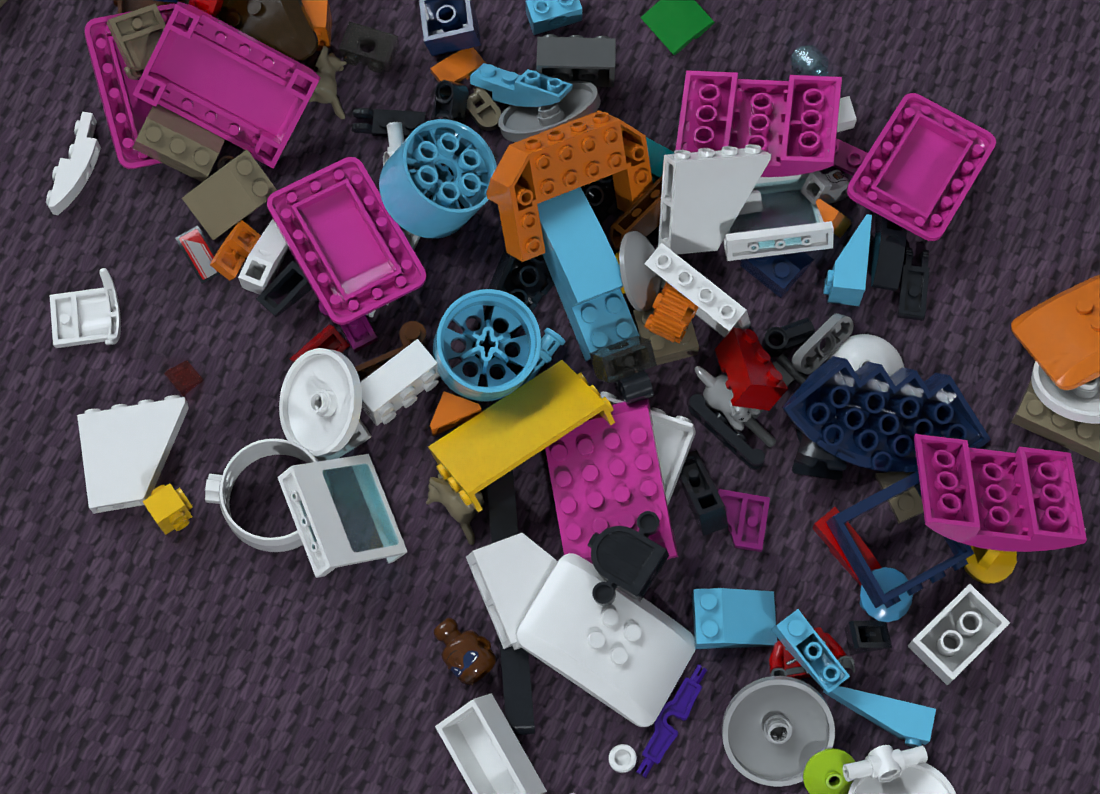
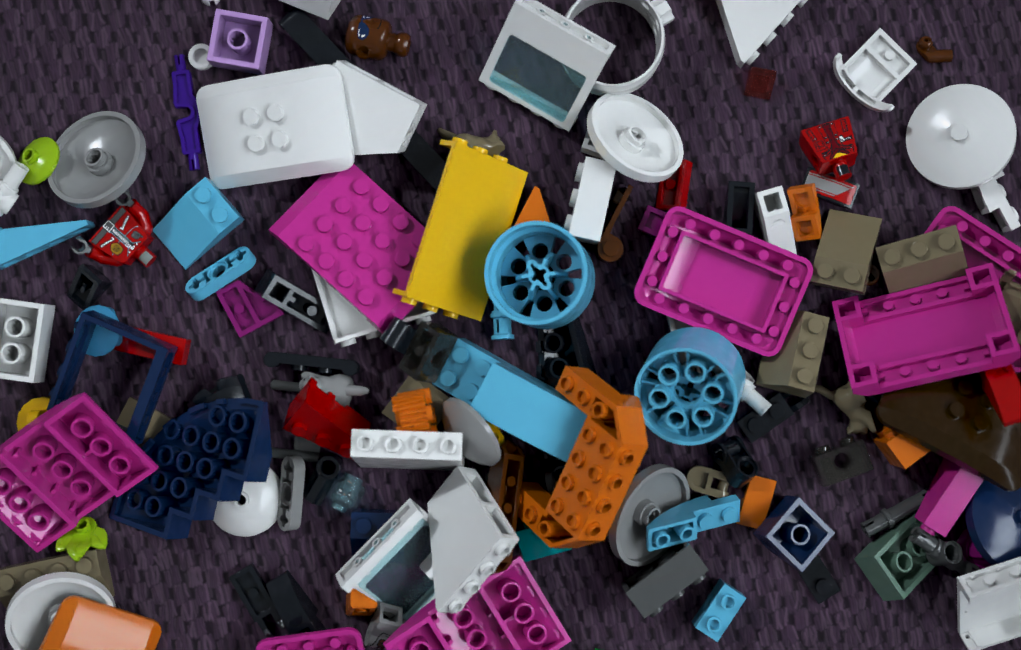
camera: 140 degrees right, 15 degrees up
(30, 295) = (930, 53): none -> reddish brown arm
(67, 211) = (961, 136): none -> white dish
(173, 280) = (830, 147): none -> red torso
(337, 139) = (798, 361): none -> dark tan slope
(579, 737) = (240, 42): none -> lavender brick
(627, 559) = (299, 190): black piece -> none
(766, 556) = (207, 282): none -> medium azure beam
(777, 310) = (346, 492): none -> clear light blue head
(810, 651) = (112, 233): medium azure slope -> none
(847, 279) = (311, 569): medium azure slope -> none
(1023, 431) = (81, 537): none -> lime plate

